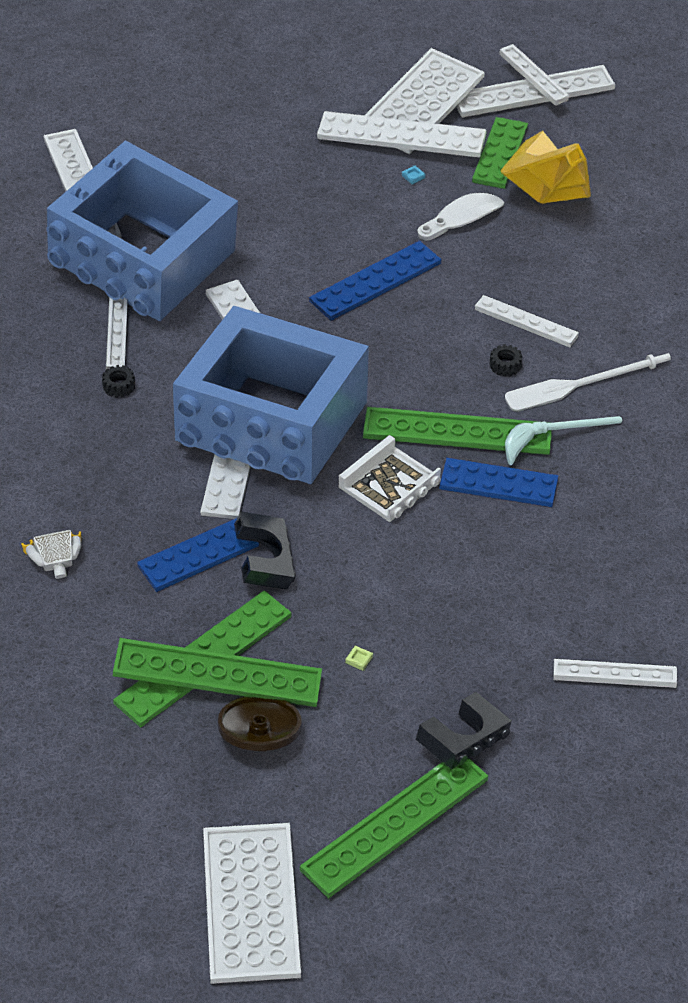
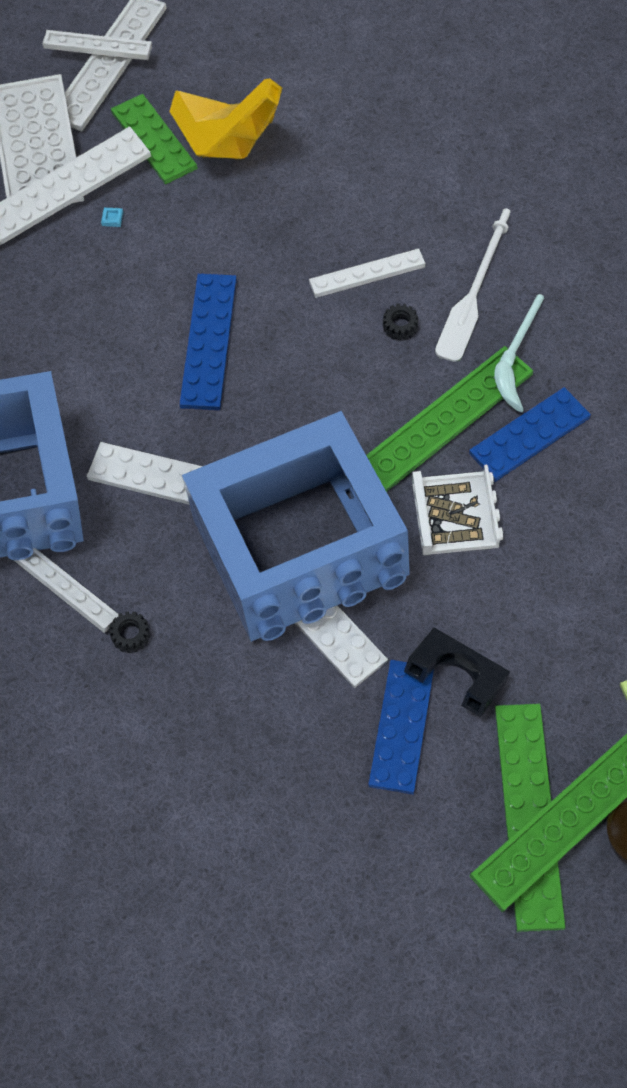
camera: 45 degrees left, 15 degrees up
(54, 551) = (296, 847): white torso -> none
(460, 213) = (199, 221): white plant -> none

